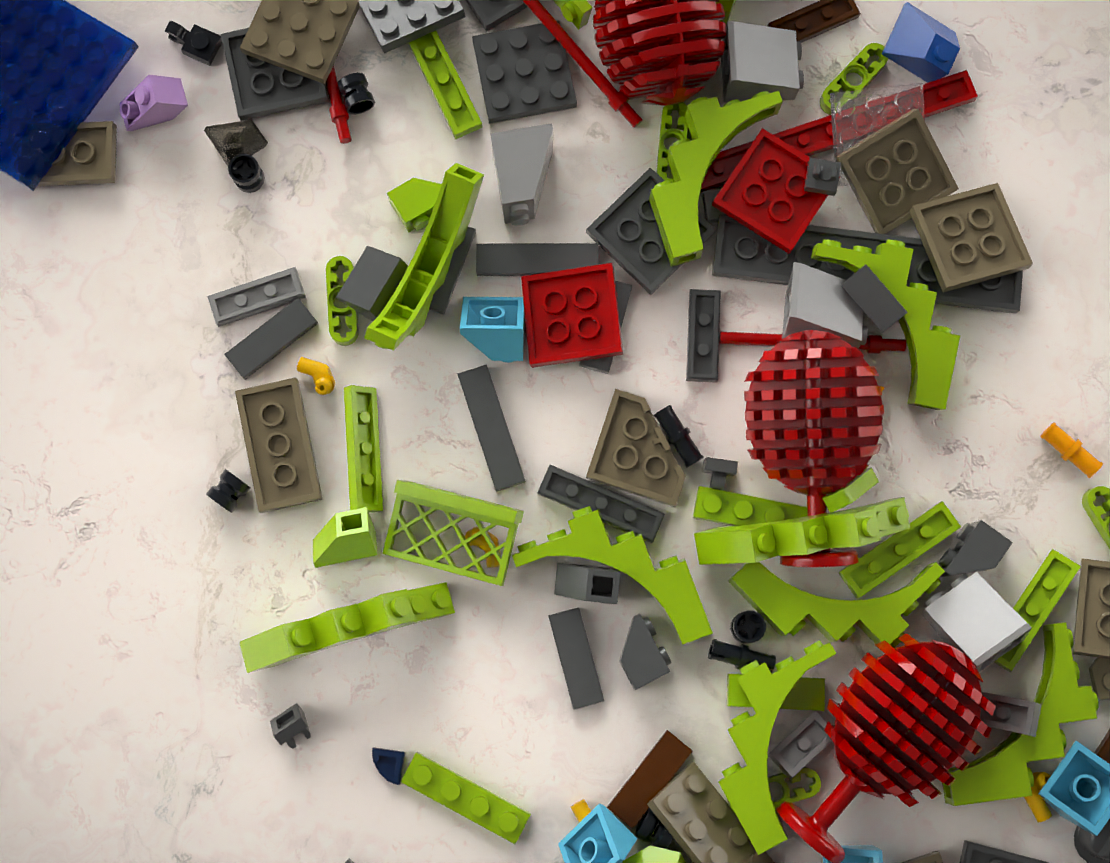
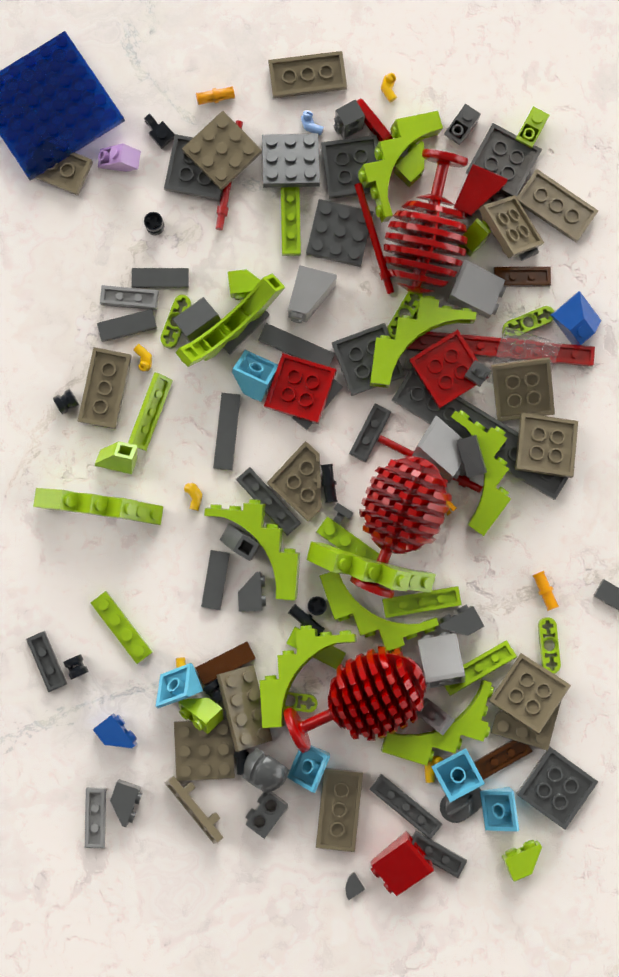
camera: 20 degrees right, 5 degrees up
(235, 139) = (157, 201): clear smoke slope -> none
(290, 248) = (160, 277): none -> dark grey tile
(290, 724) = (44, 544): dark grey tile -> none
(356, 95) = (237, 203): black wheel -> none
(389, 763) = (88, 590): dark blue tile -> none
(457, 504) = (185, 464): lime fence -> none
(801, 745) = (314, 682): light grey plate -> none
(851, 492) = (409, 557): lime beam -> none

